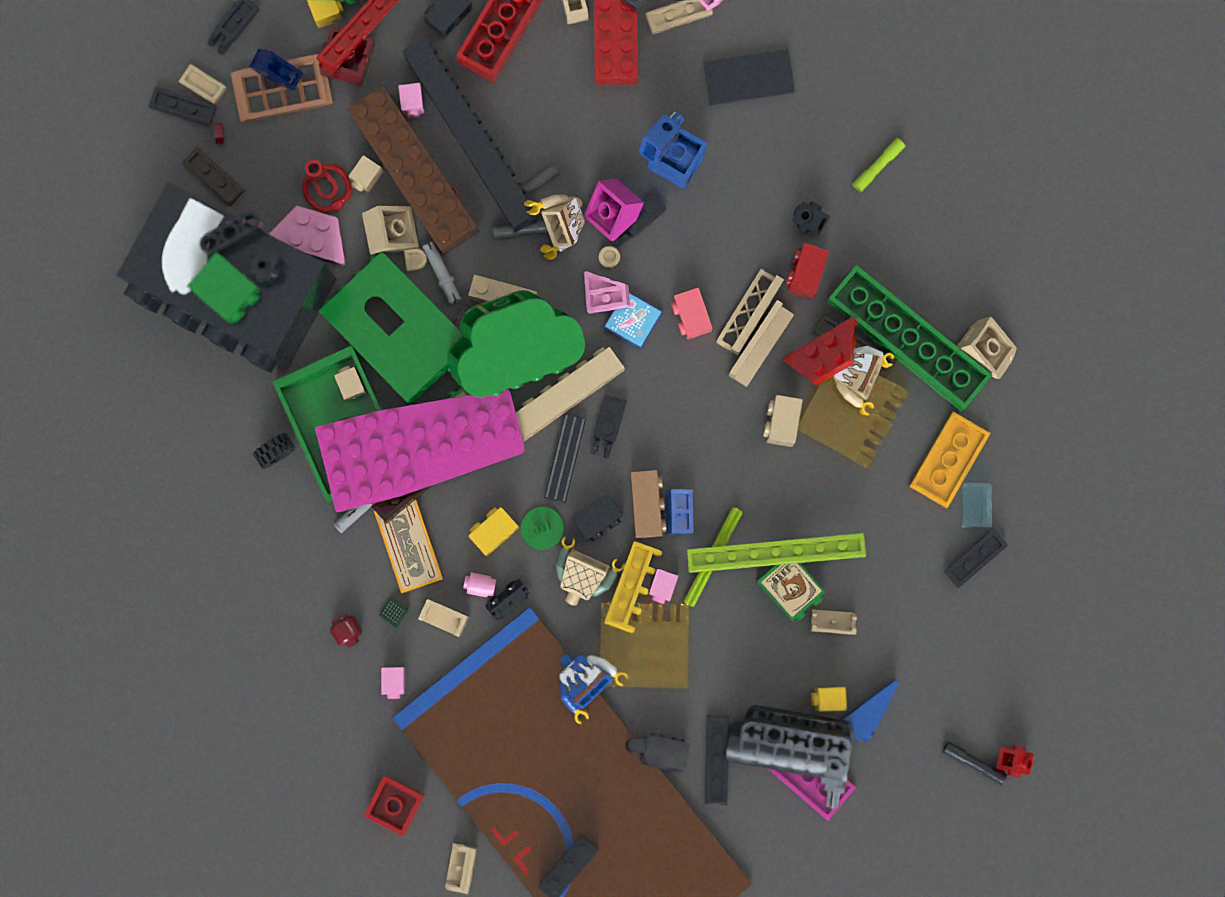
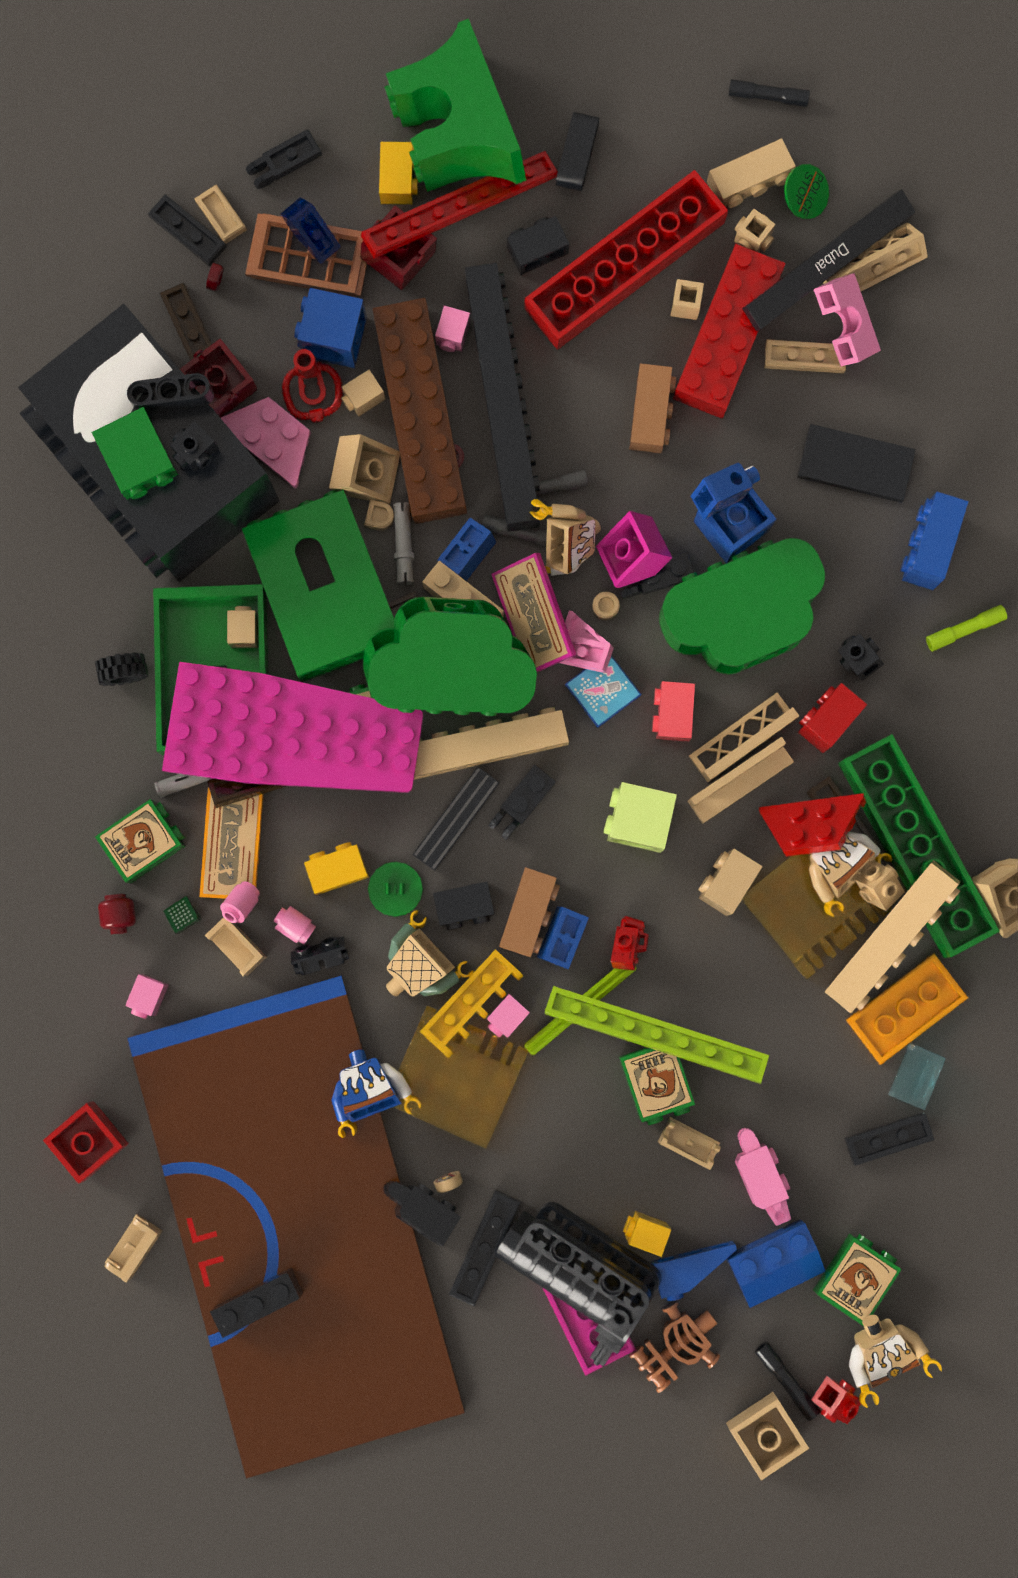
camera: 20 degrees right, 0 degrees up
(258, 200) = (225, 374): none -> dark red brick
(322, 135) = (331, 327): none -> blue brick
(341, 570) = (141, 840): none -> brick
(433, 584) = (240, 902): none -> bright pink brick
(491, 257) = (468, 549): none -> blue hinge
(558, 282) = (534, 611): none -> tile
(583, 98) = (652, 408): none -> medium nougat brick
(670, 723) = (448, 1182): none -> tan tile
(699, 401) = (640, 817): none -> yellowish green brick
(712, 216) = (745, 607): none -> green brick
(728, 496) = (627, 943): none -> red piece
(828, 111) = (933, 540): none -> blue brick
(892, 378) = (880, 885): none -> tan brick
(894, 752) = (698, 1327): none -> nougat piece
(895, 625) = (761, 1177): none -> bright pink hinge
(917, 410) = (892, 936): none -> tan brick
(931, 682) = (776, 1263): none -> blue slope
(975, 807) = (767, 1435): none -> tan brick
(994, 668) = (857, 1278): none -> brick
(1035, 712) = (884, 1353): none -> torso

